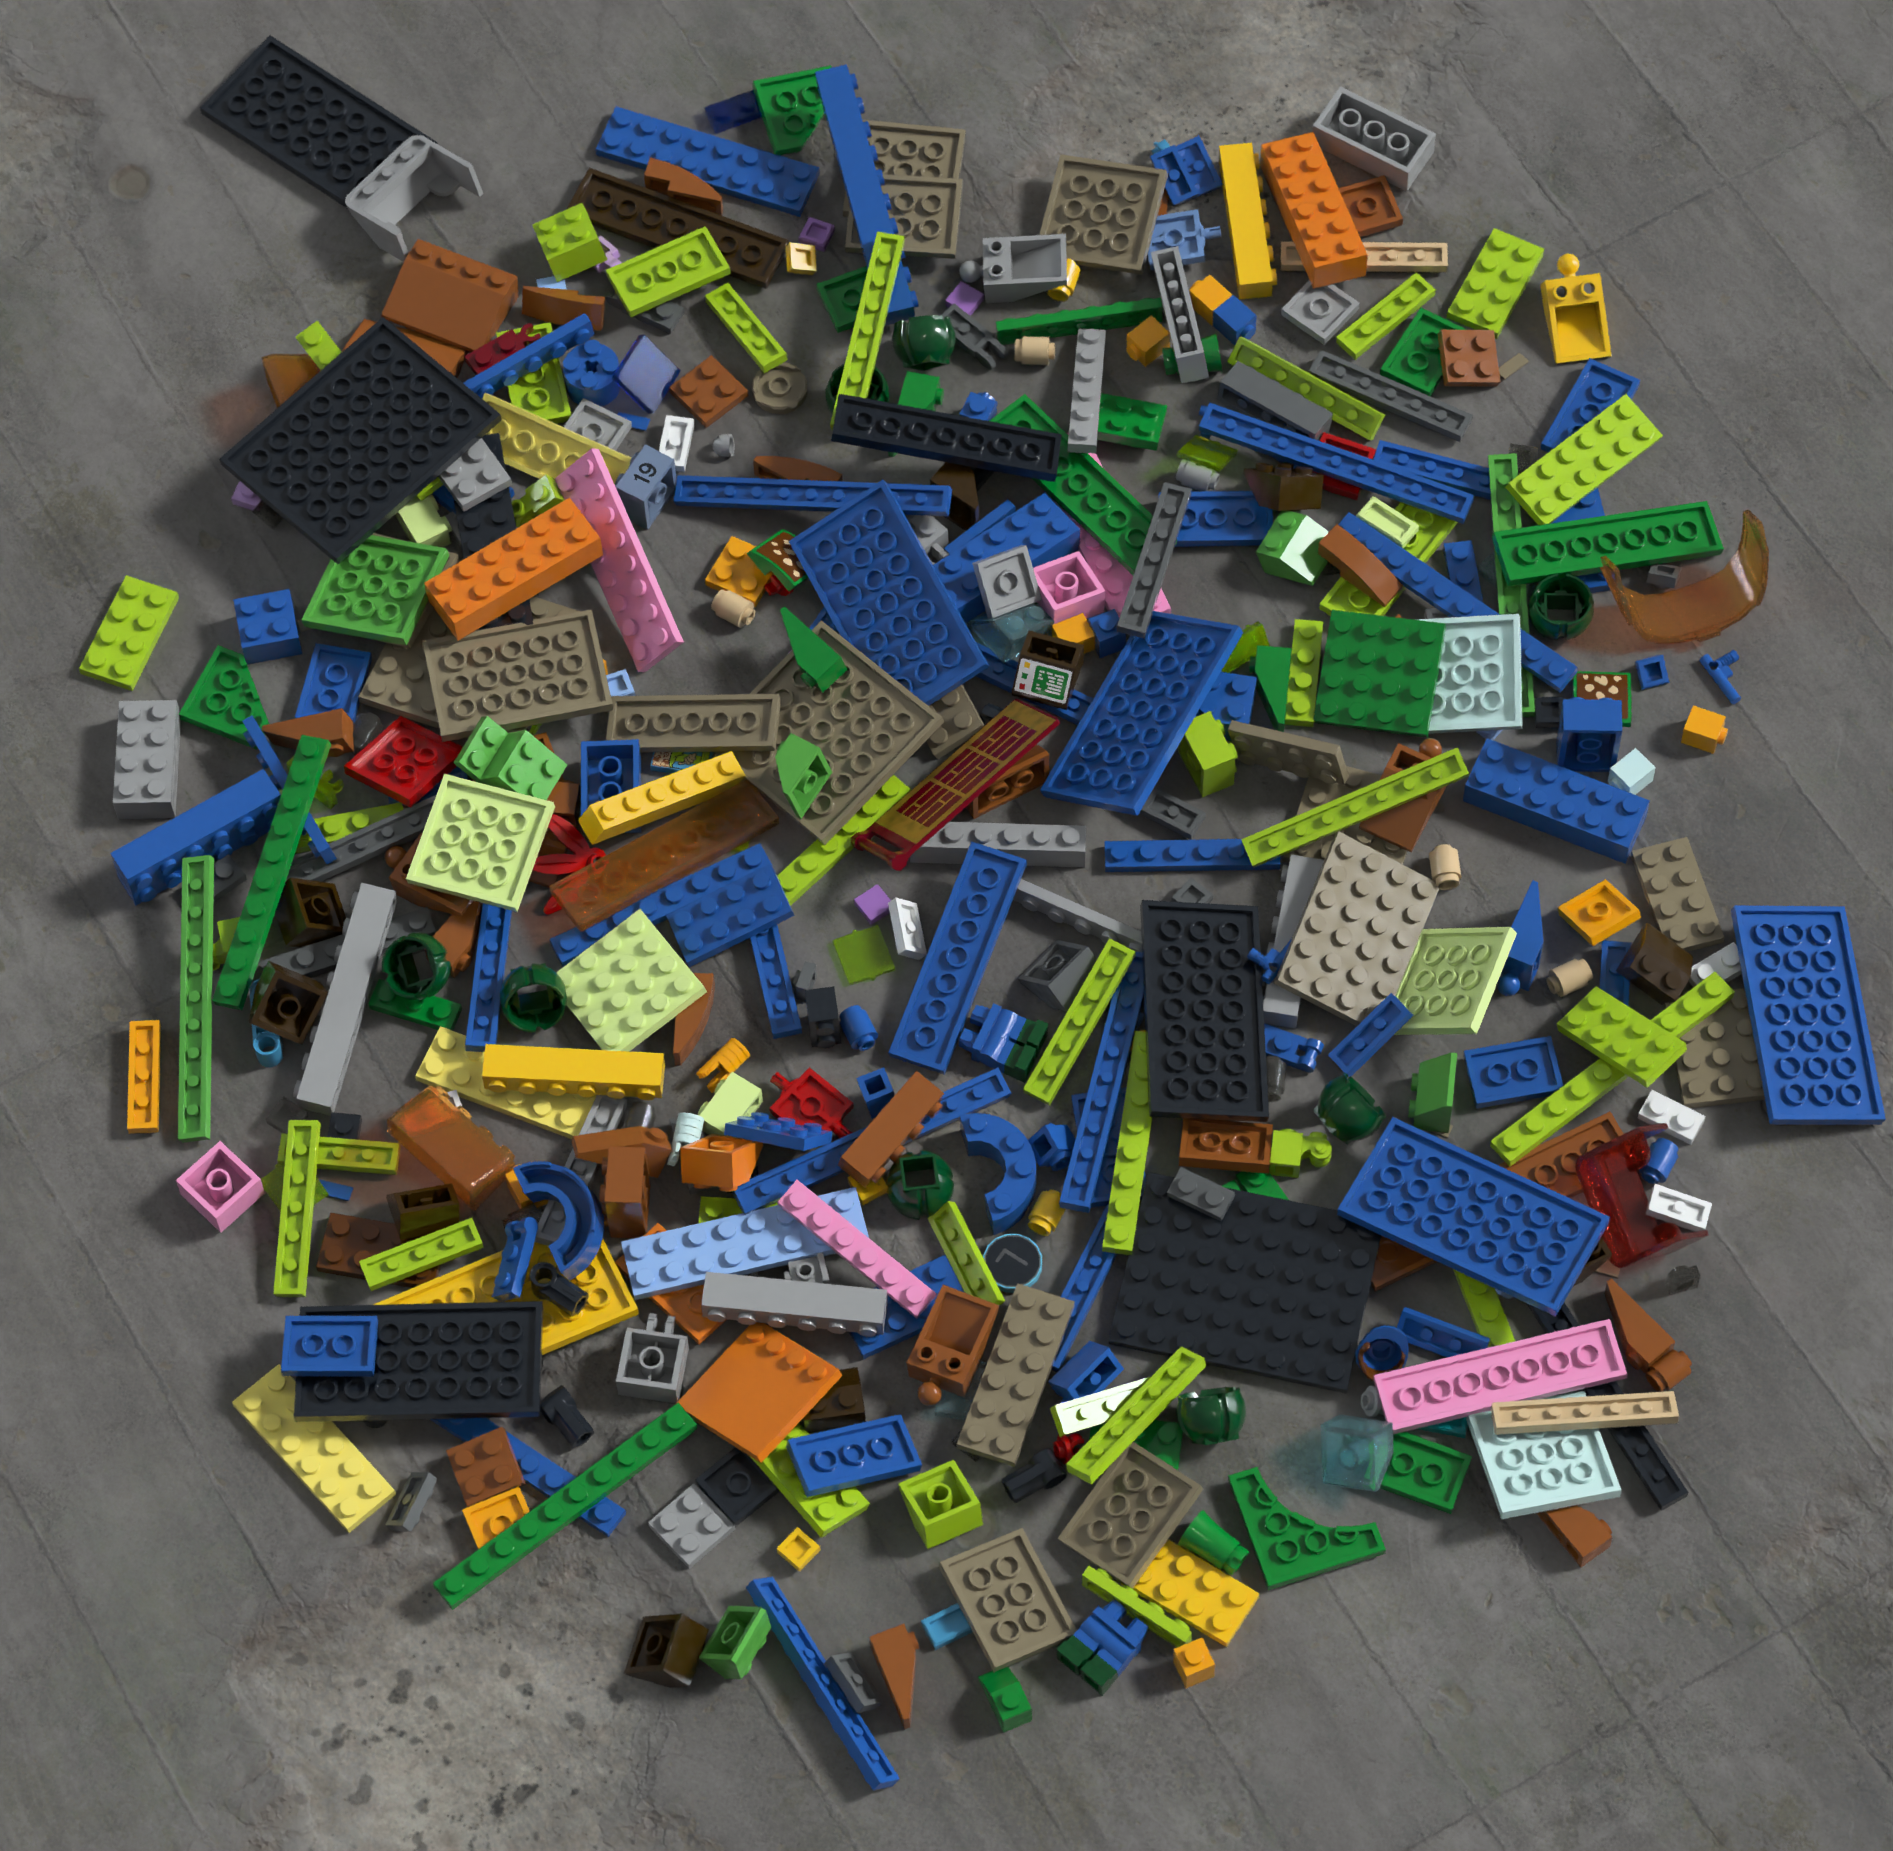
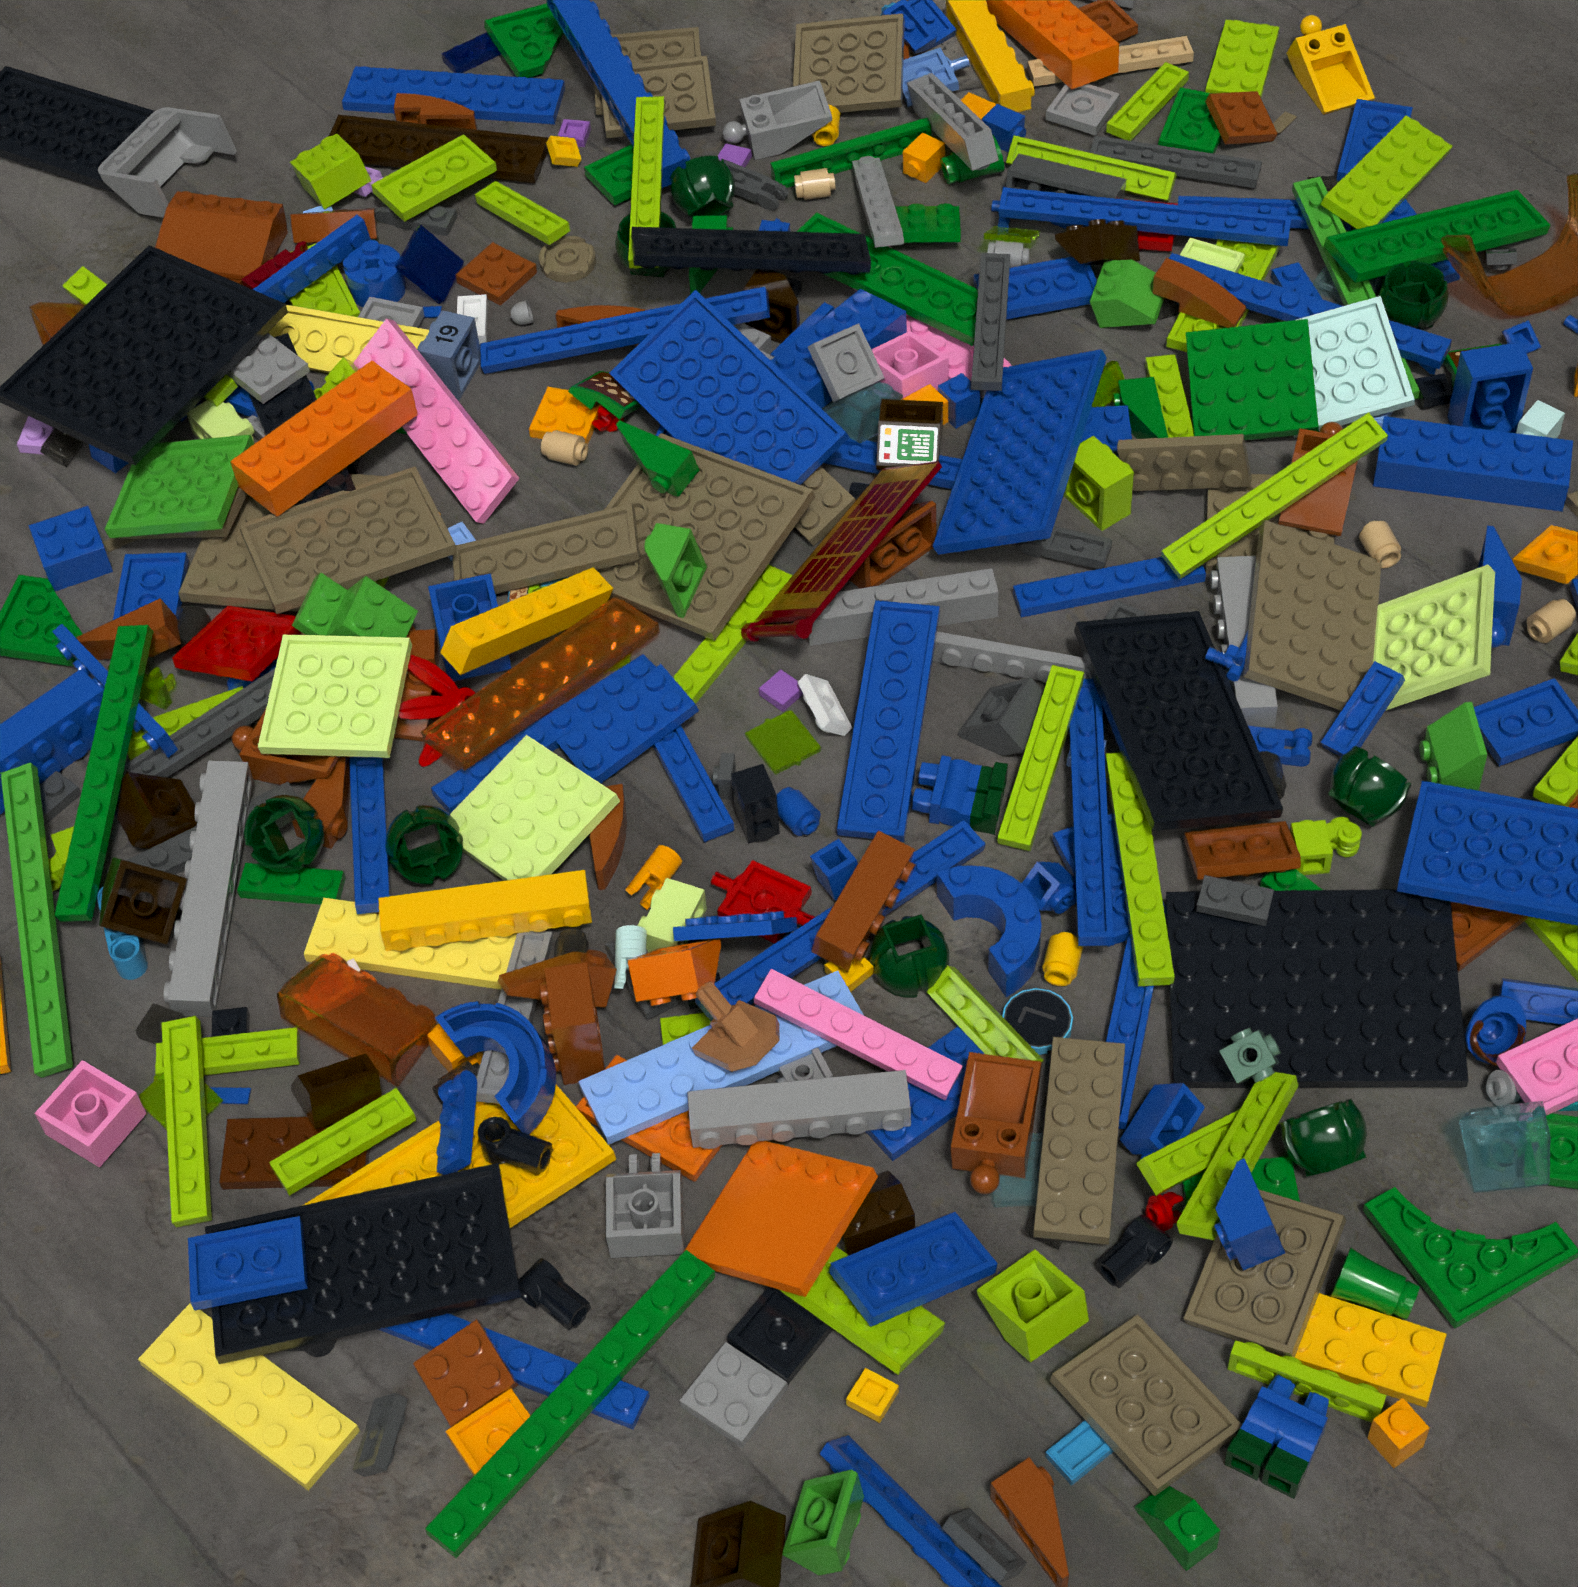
camera: 10 degrees left, 10 degrees down
(758, 1230) = (738, 1031): none -> medium nougat piece
(1121, 1472) = (1245, 1222): none -> blue slope
(1170, 1335) = (1237, 1055): none -> sand green brick

